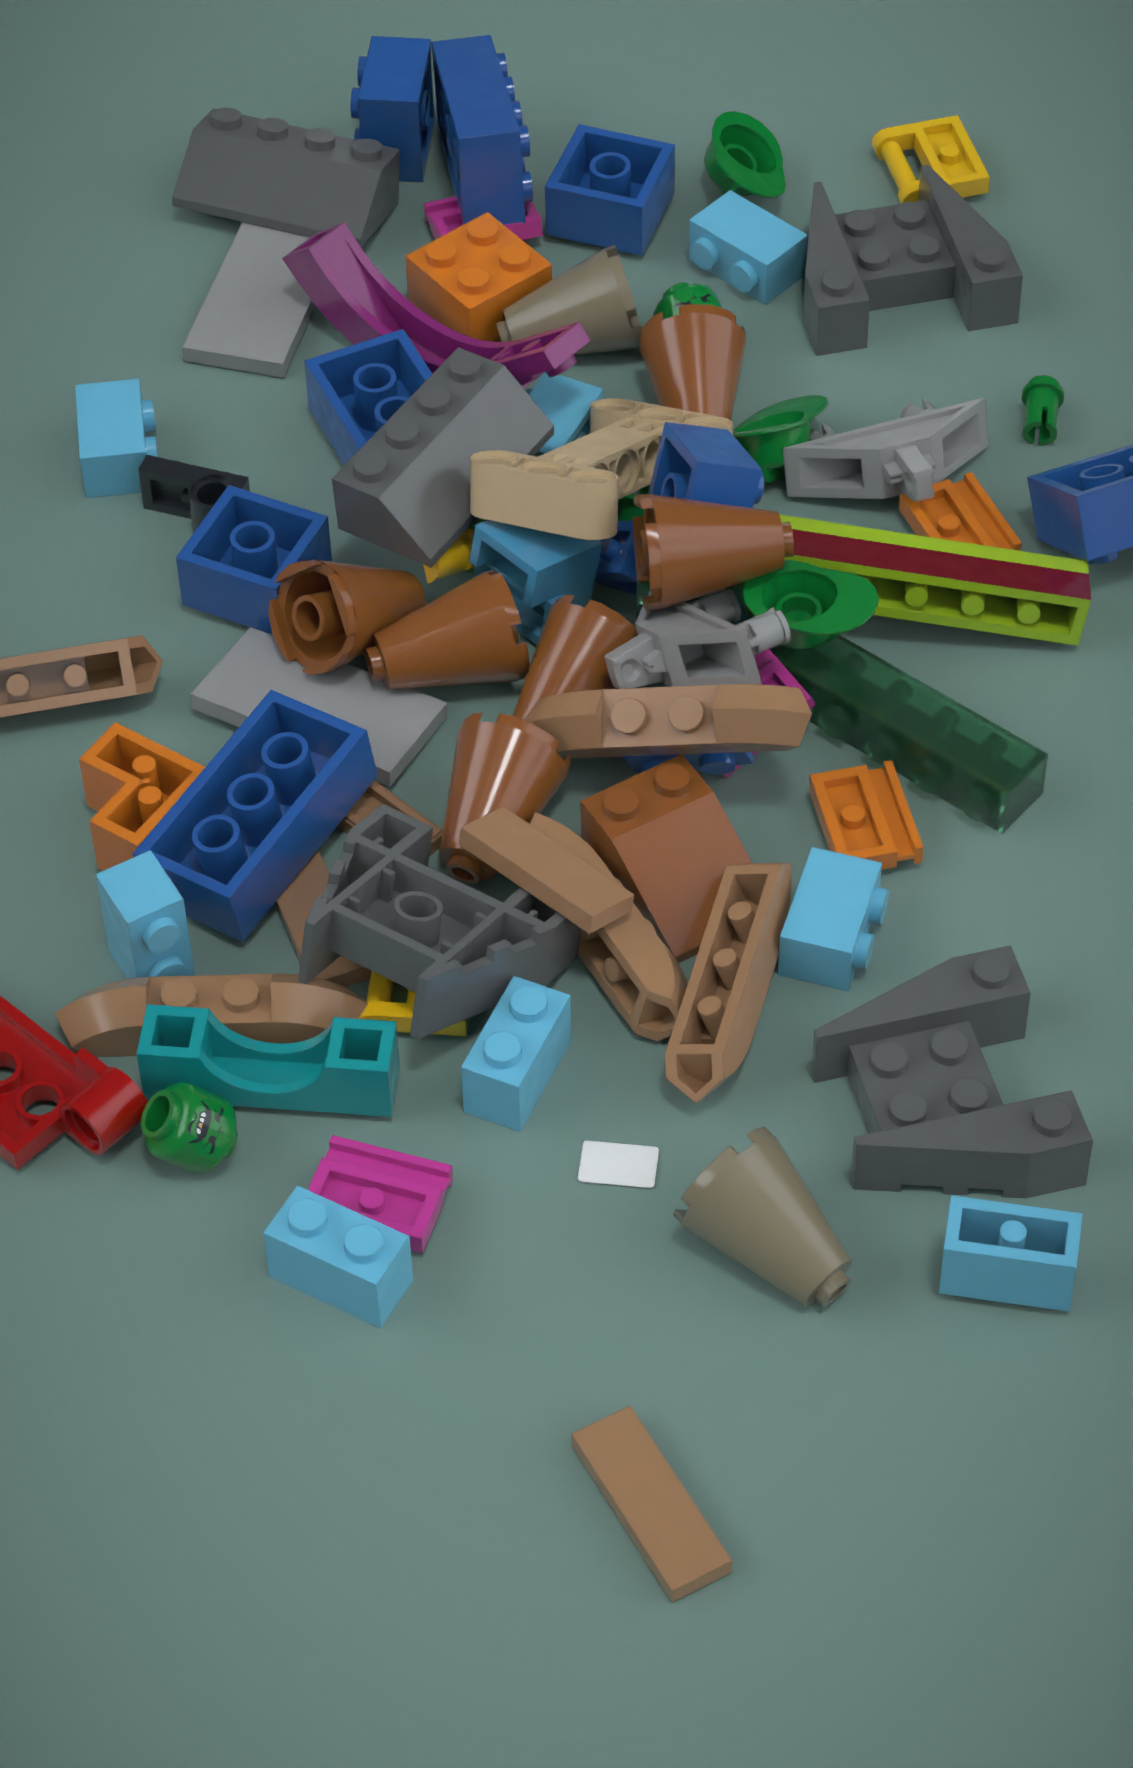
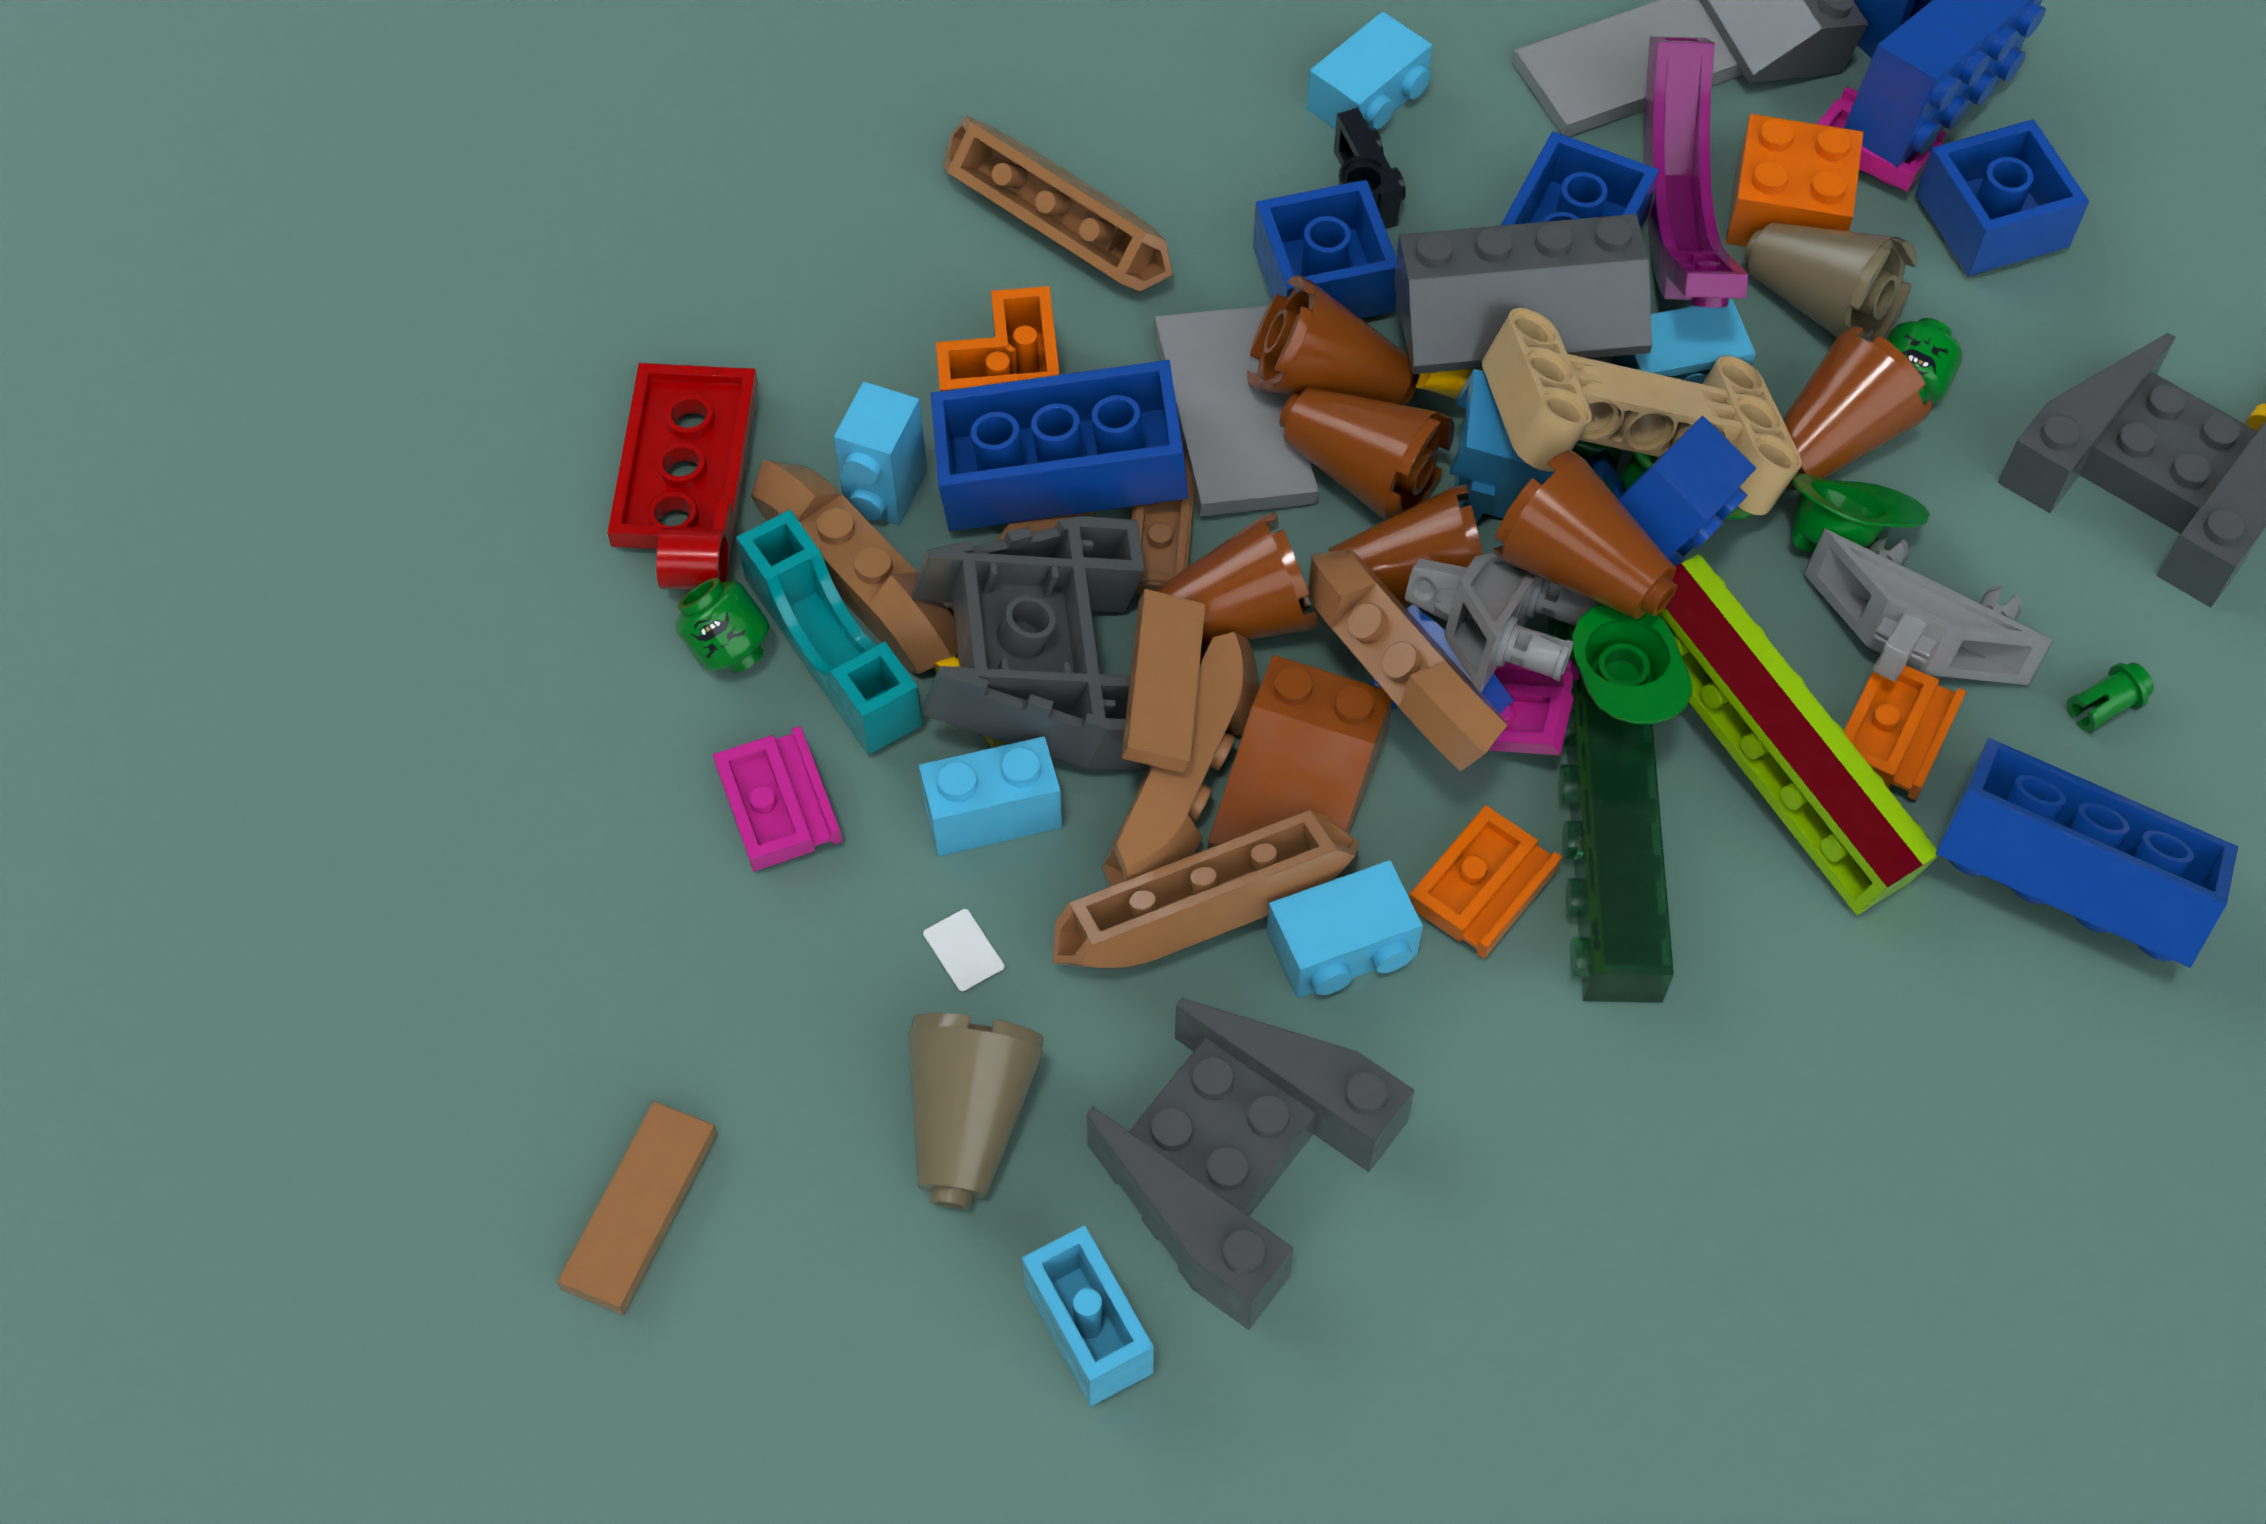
camera: 50 degrees right, 10 degrees up
(338, 1256) = (685, 815): medium azure brick -> none
(744, 157) = (2154, 264): green piece -> none
(747, 247) = (2051, 337): medium azure brick -> none

